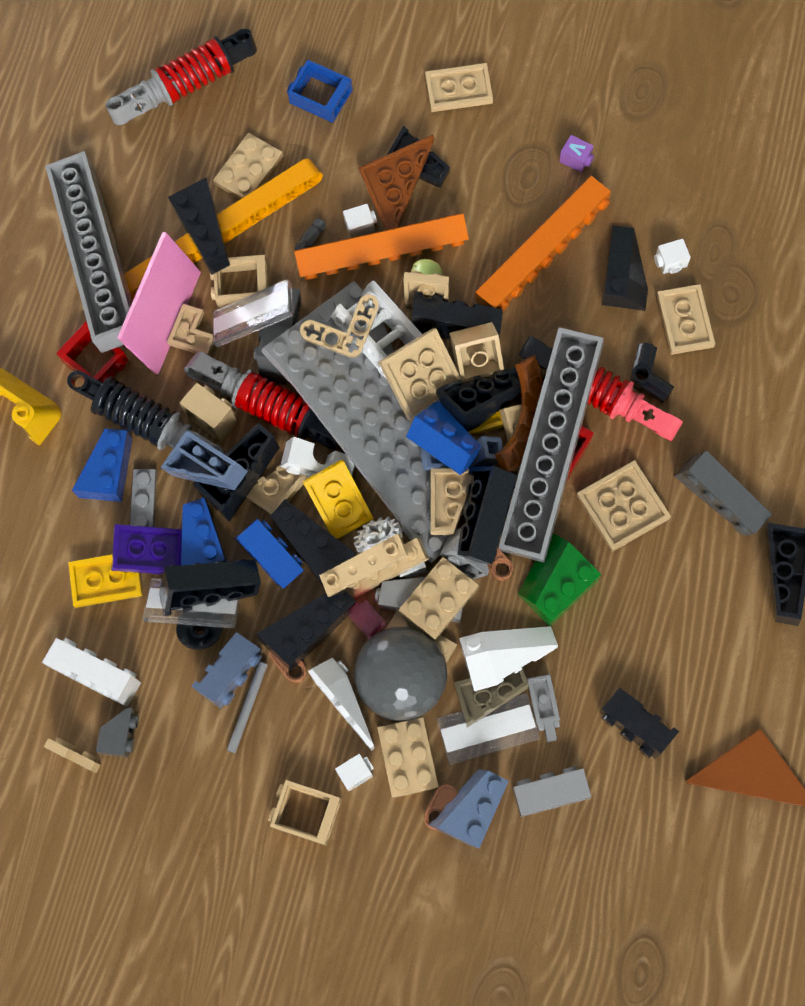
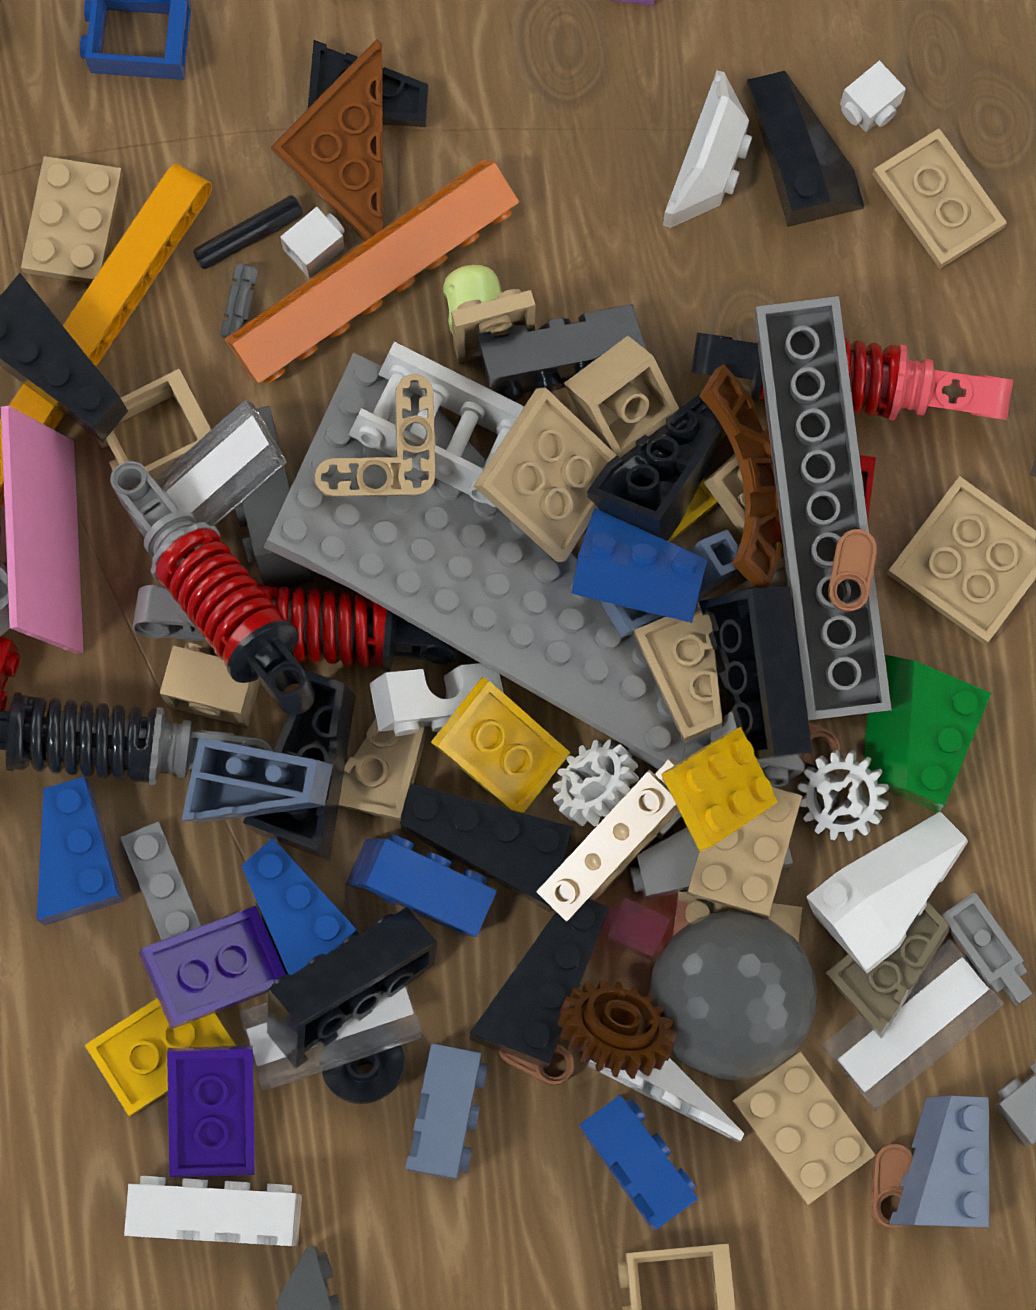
camera: 30 degrees left, 5 degrees up
(113, 620) = (210, 1111): none -> dark purple plate
(186, 333) = (99, 562): tan plate -> none
(227, 364) = (215, 591): none -> piece
(247, 707) = (501, 1160): light grey bar -> none
(314, 737) = (639, 1161): none -> blue wedge
(329, 205) = (247, 232): none -> black axle
(329, 661) = (616, 1029): none -> reddish brown gear
(355, 771) = (730, 1189): white brick -> none
(433, 559) = (719, 788): none -> yellow plate
(510, 590) = (855, 805): none -> white gear
(544, 245) = (648, 162): orange brick -> none
(555, 475) = (853, 561): none -> nougat piece
(575, 255) = (711, 155): none -> white wedge
(653, 384) = (904, 304): black piece -> none

